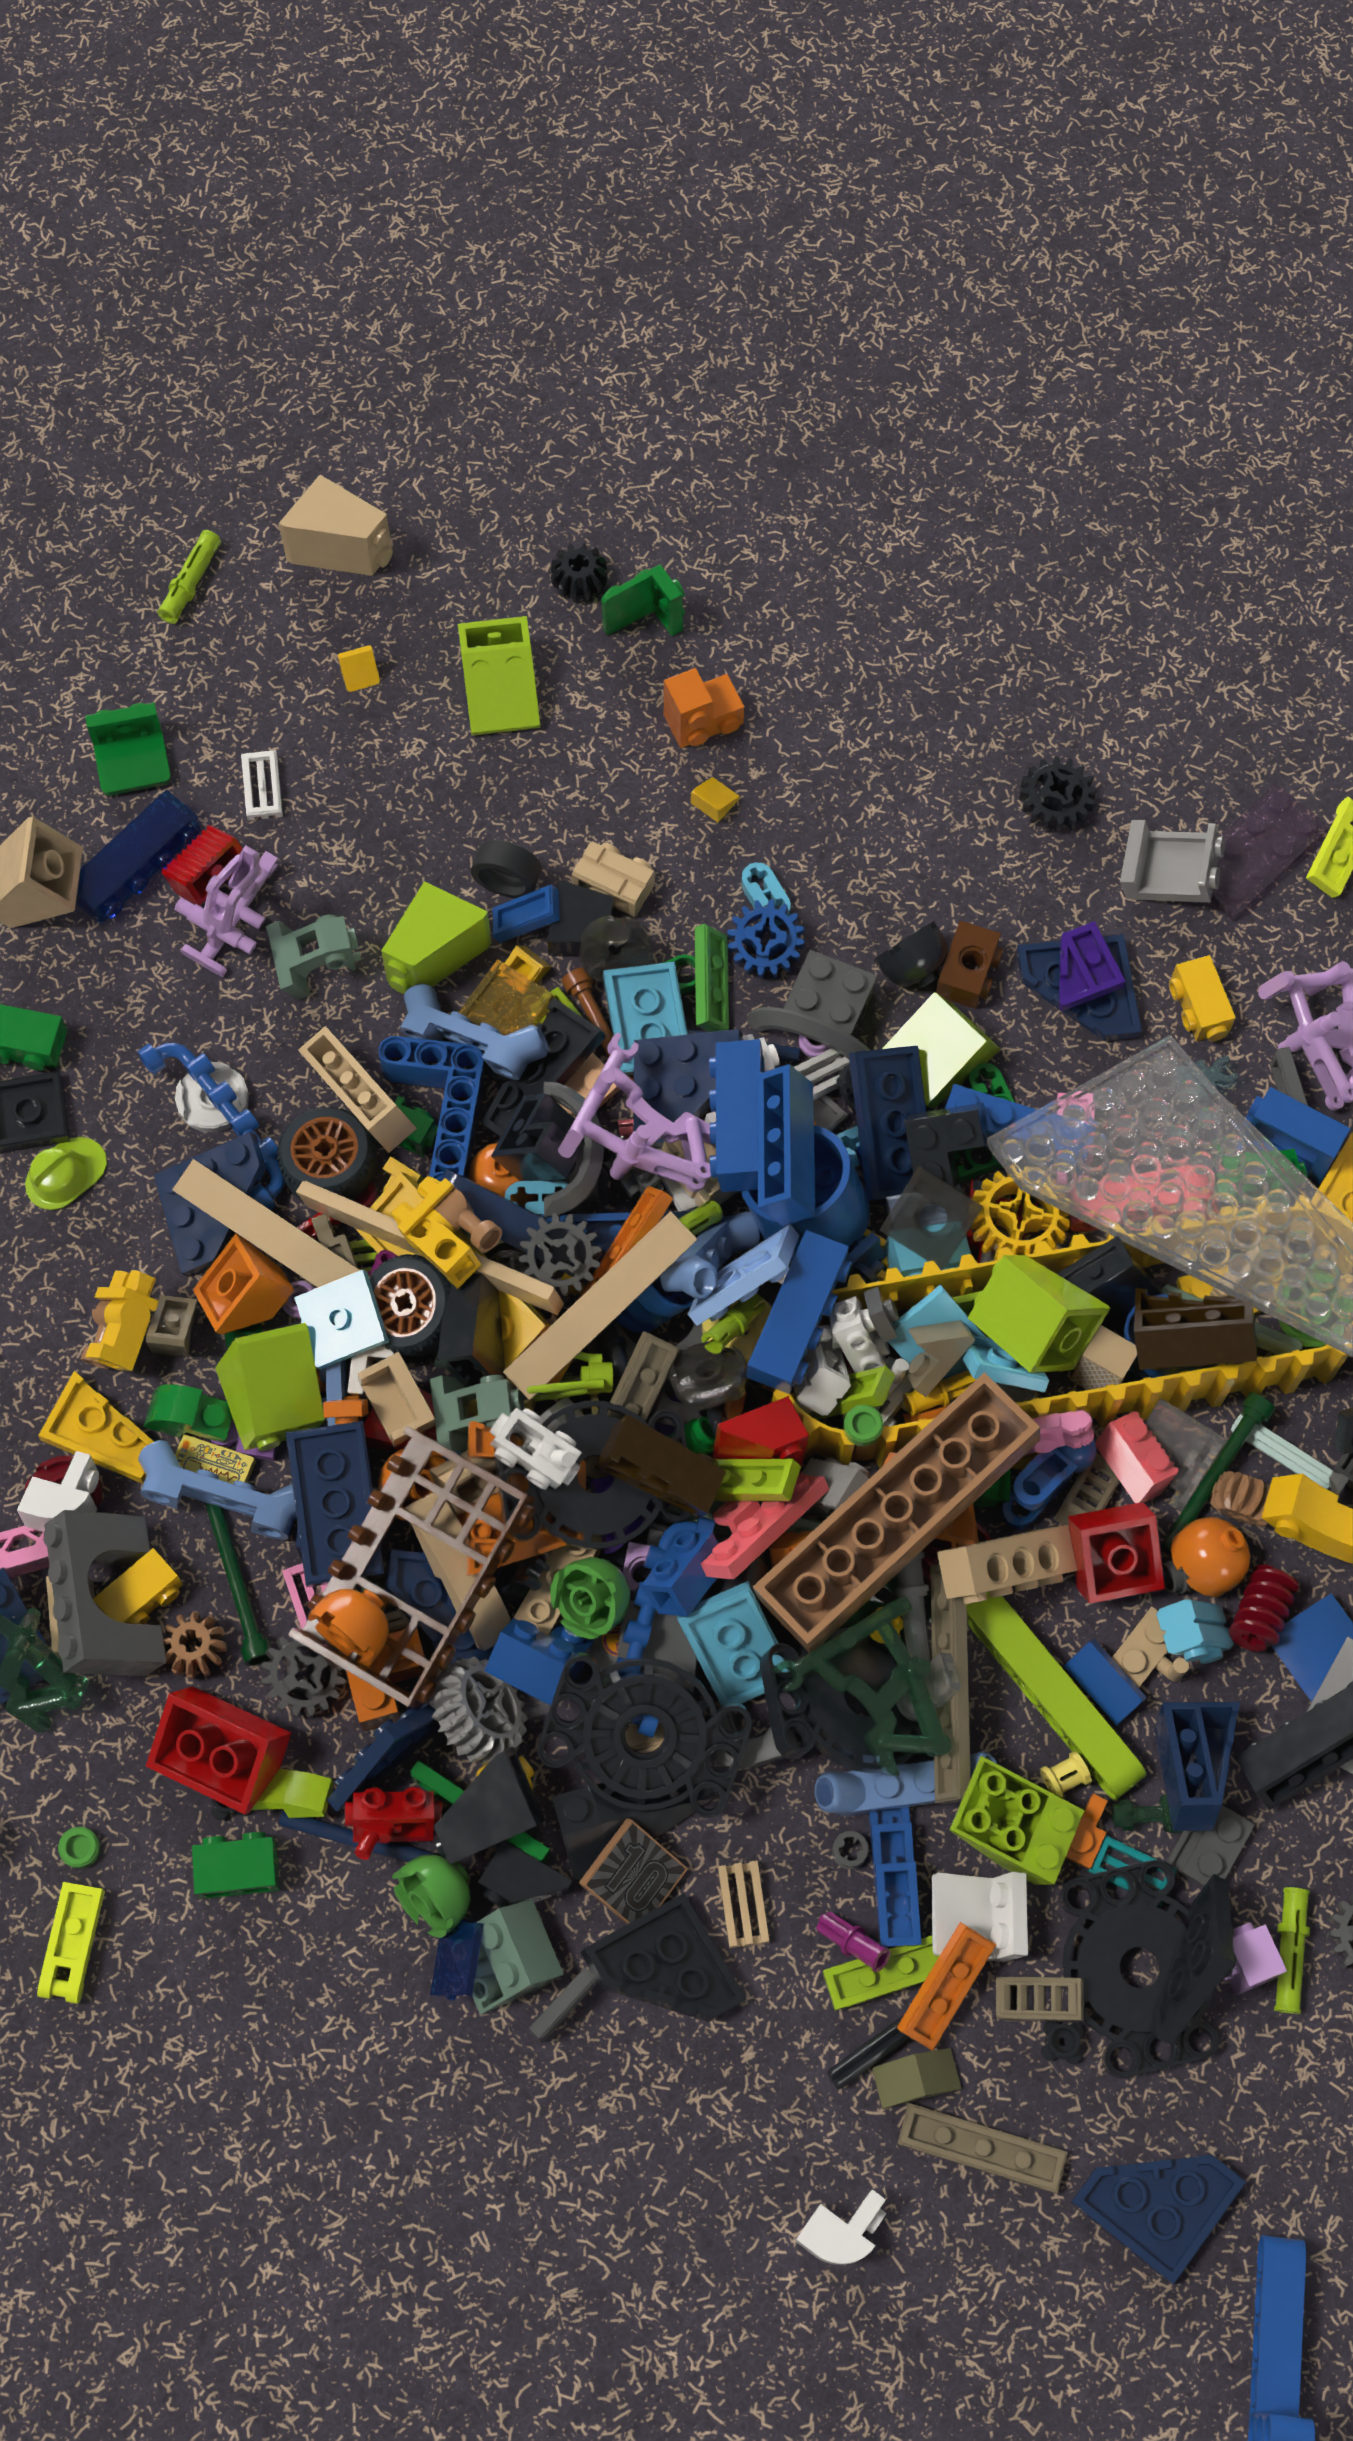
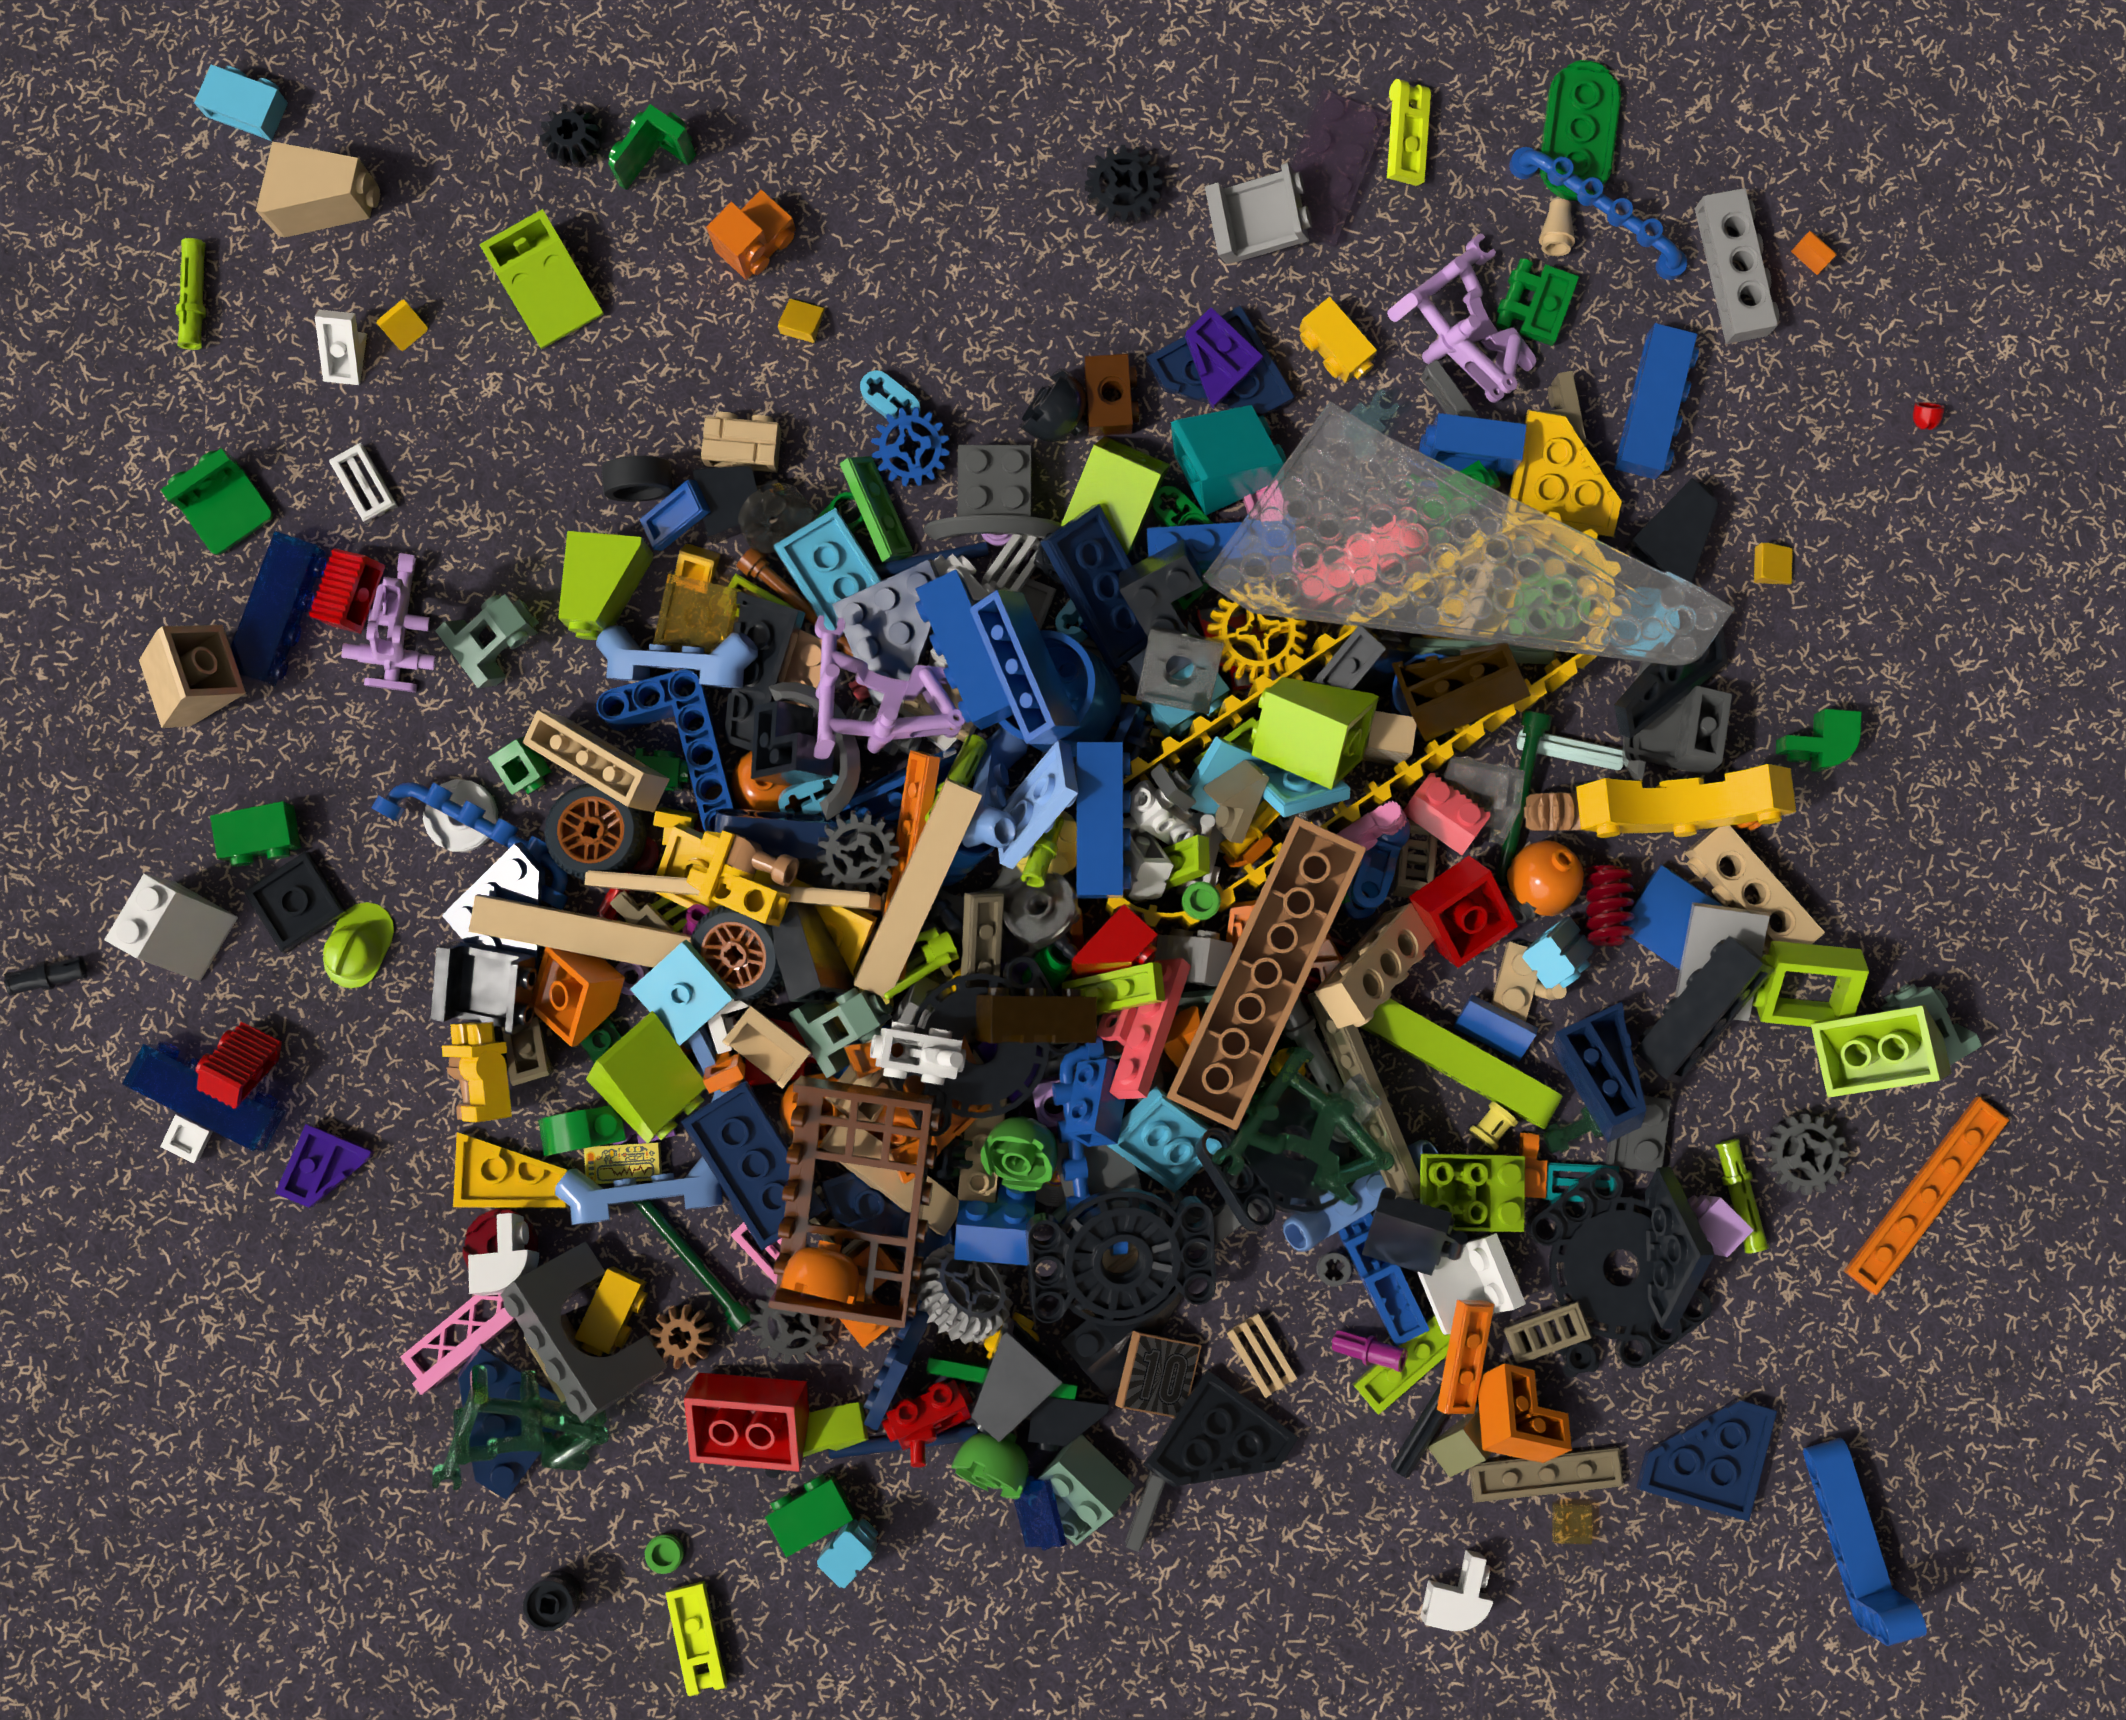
camera: 25 degrees left, 15 degrees up
(161, 1246) = (483, 985): none -> panel
(257, 1913) = (848, 1552): none -> medium azure brick
(279, 1065) = (509, 766): none -> green brick
(296, 664) = (340, 346): none -> white slope
(307, 441) = (241, 101): none -> medium azure brick
(938, 1829) = (1412, 1234): none -> black piece
(970, 2069) = (1514, 1422): none -> orange brick
(989, 2210) = (1571, 1523): none -> clear yellow tile
(1052, 1051) = (1226, 455): none -> teal slope

